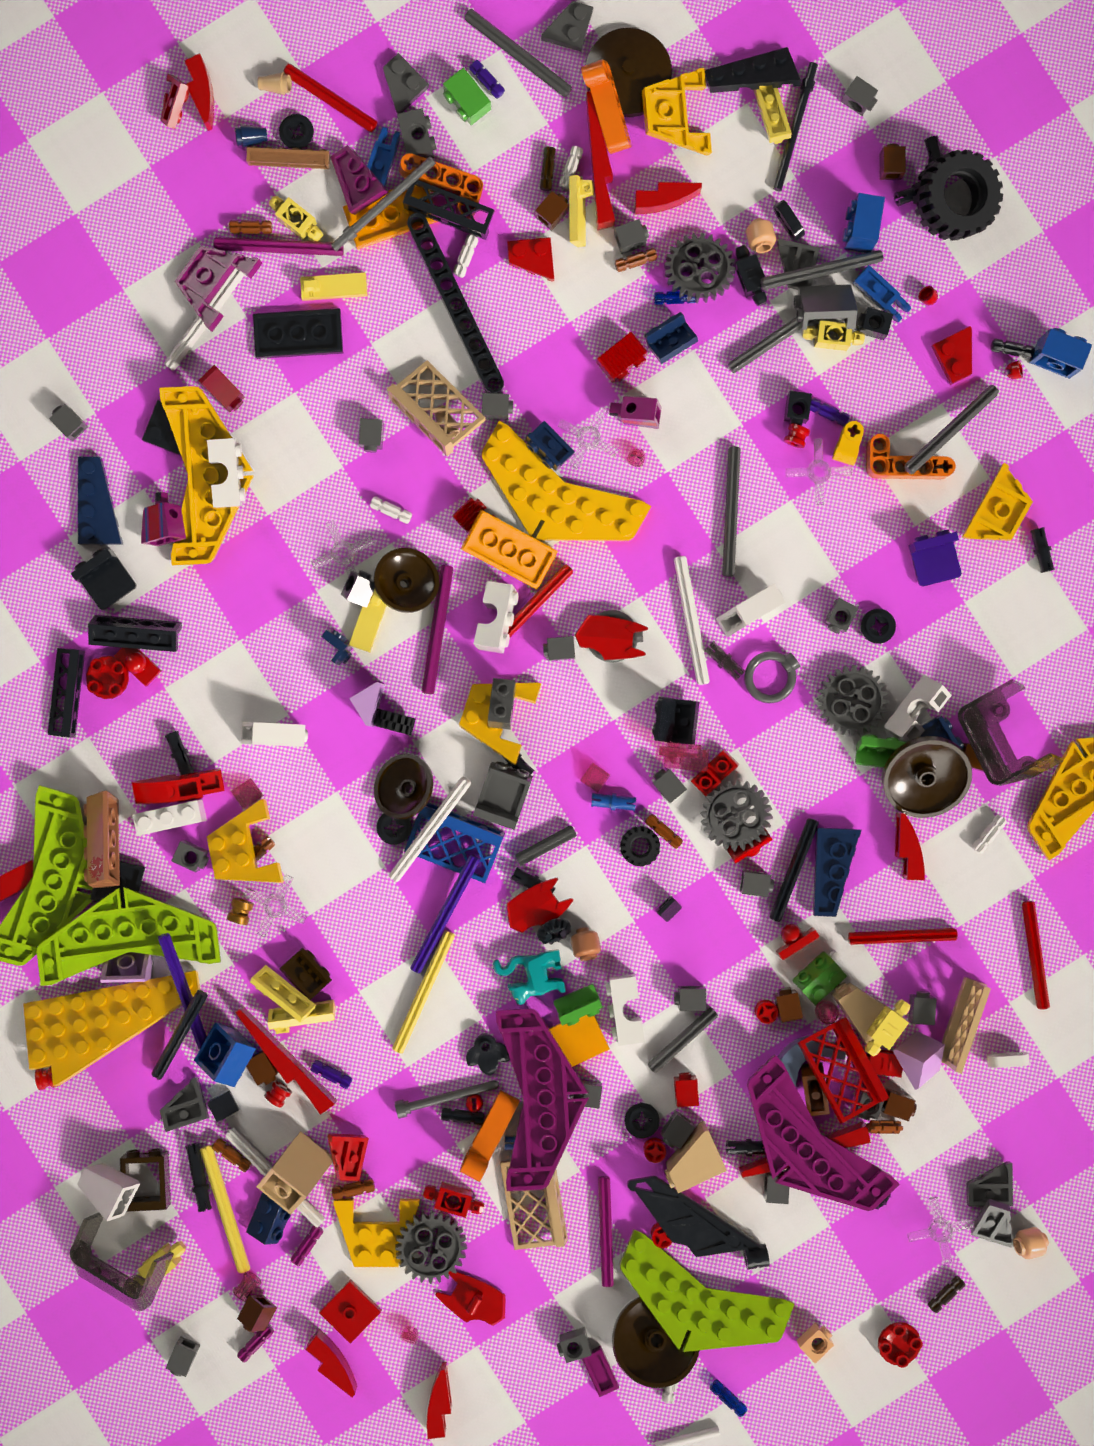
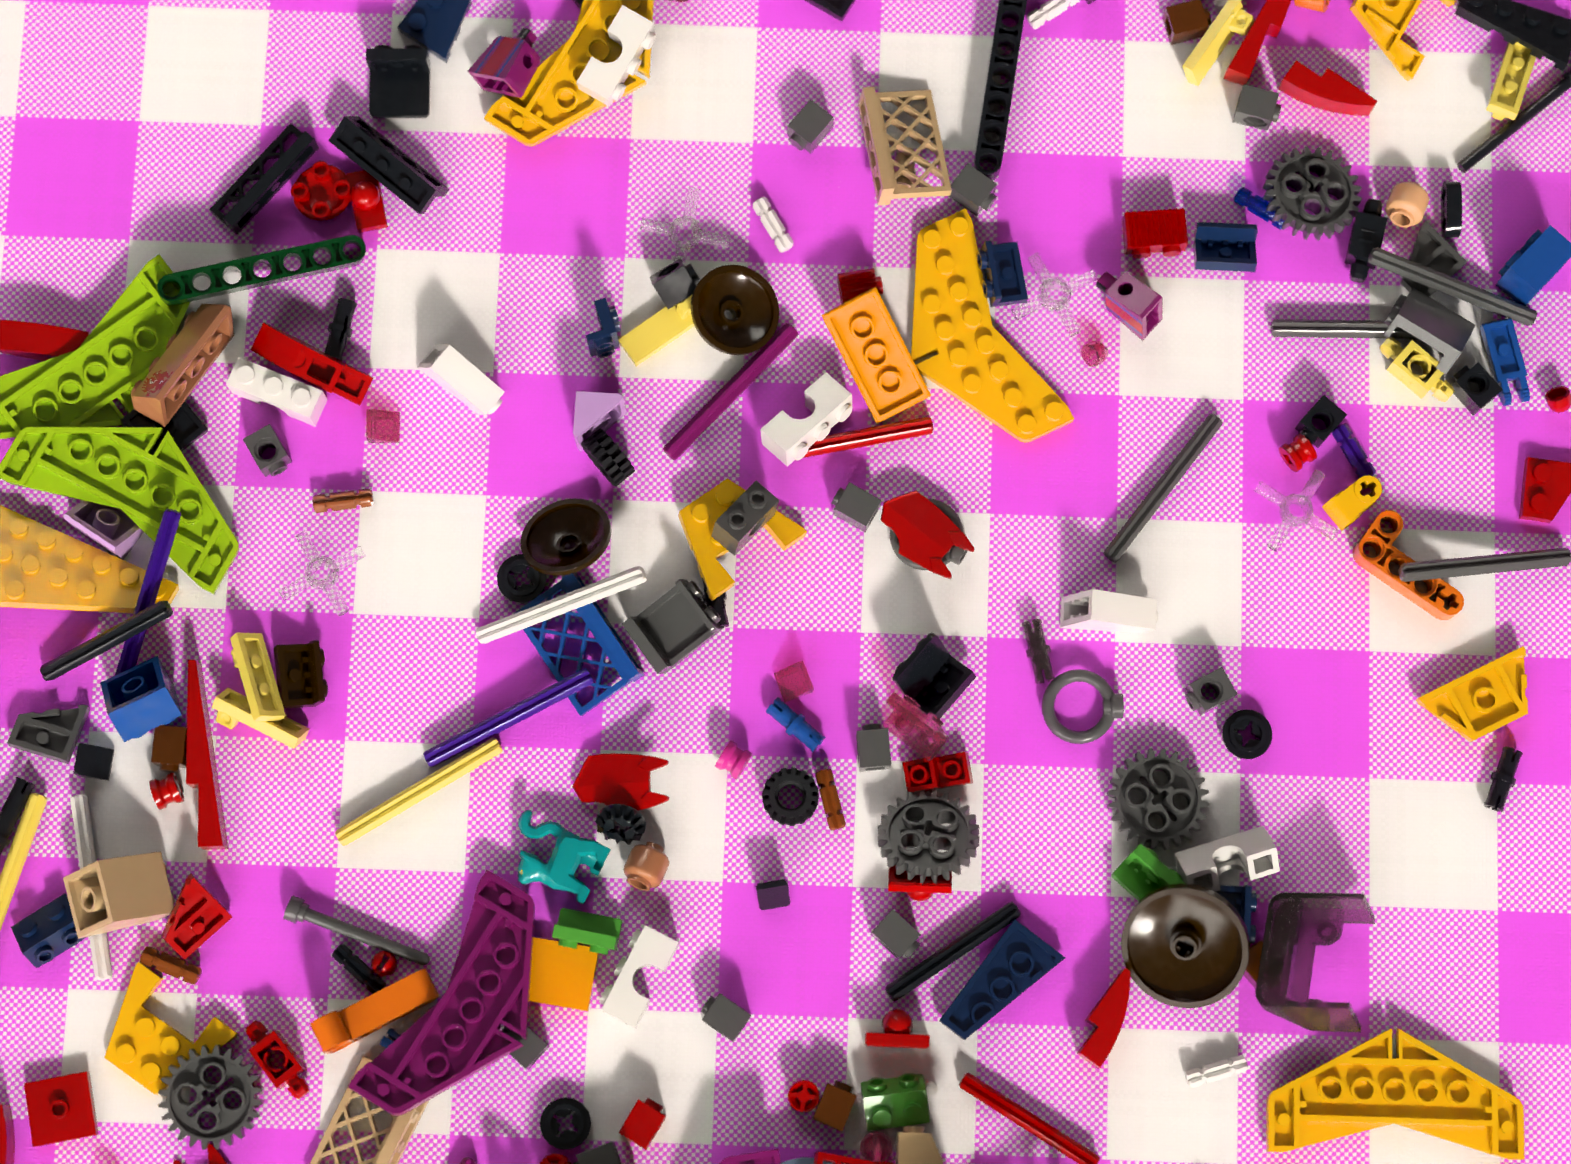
camera: 35 degrees right, 10 degrees down
(101, 761) = (250, 280): none -> dark green beam
(231, 1155) = (61, 826): dark orange axle -> none
(233, 849) = (321, 478): yellow wing -> none
(240, 911) = (284, 548): pearl gold wheel -> none
(306, 1245) = (68, 993): magenta axle -> none
(331, 1074) = (243, 812): dark purple axle -> none
(487, 1057) = (437, 920): black plate -> none
(526, 879) = (631, 744): black pin -> none
(532, 256) = (1129, 57): red wing -> none
(545, 845) = (681, 720): dark grey axle -> none
(592, 848) = (733, 760): none -> dark pink wheel
(636, 260) = (1245, 138): dark orange axle -> none
(682, 1040) = (681, 1061): dark grey axle -> none
(691, 620) = (1031, 579): white axle -> none
(935, 558) = (1368, 700): dark purple bracket -> none

